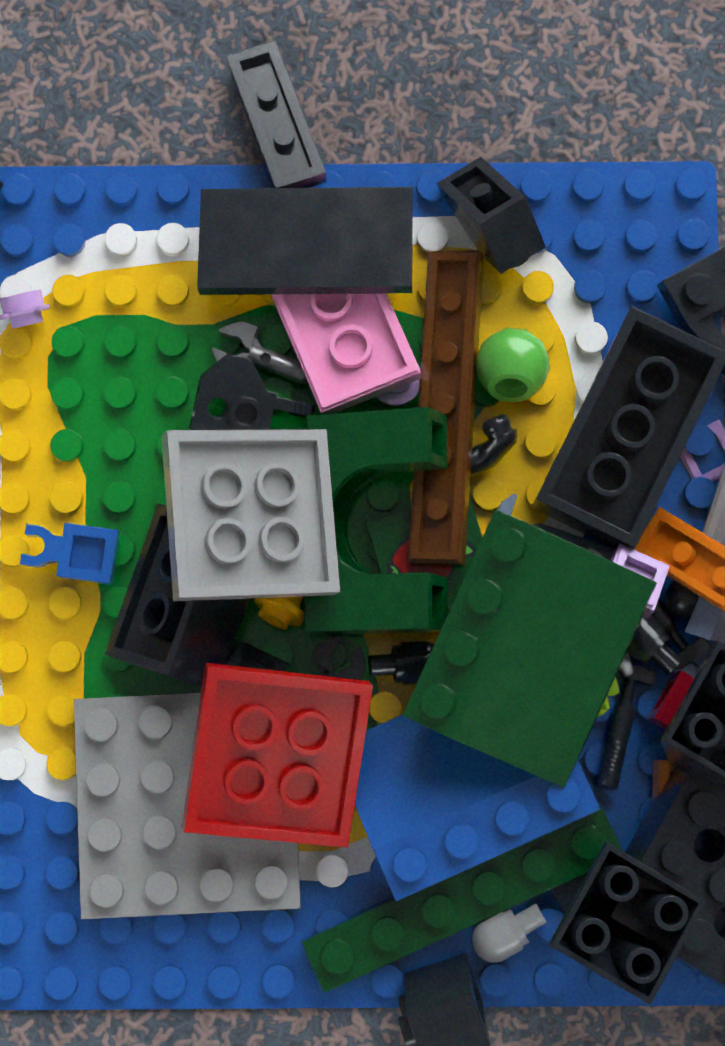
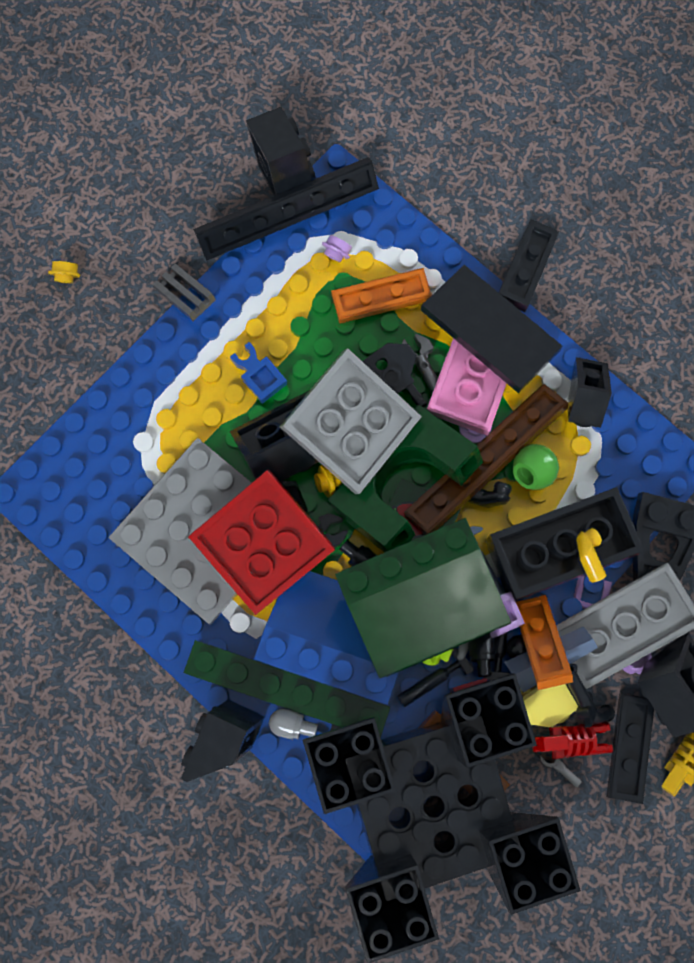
camera: 40 degrees right, 5 degrees down
(132, 317) = (381, 295): none -> orange tile
(673, 421) = (588, 557): none -> yellow arm

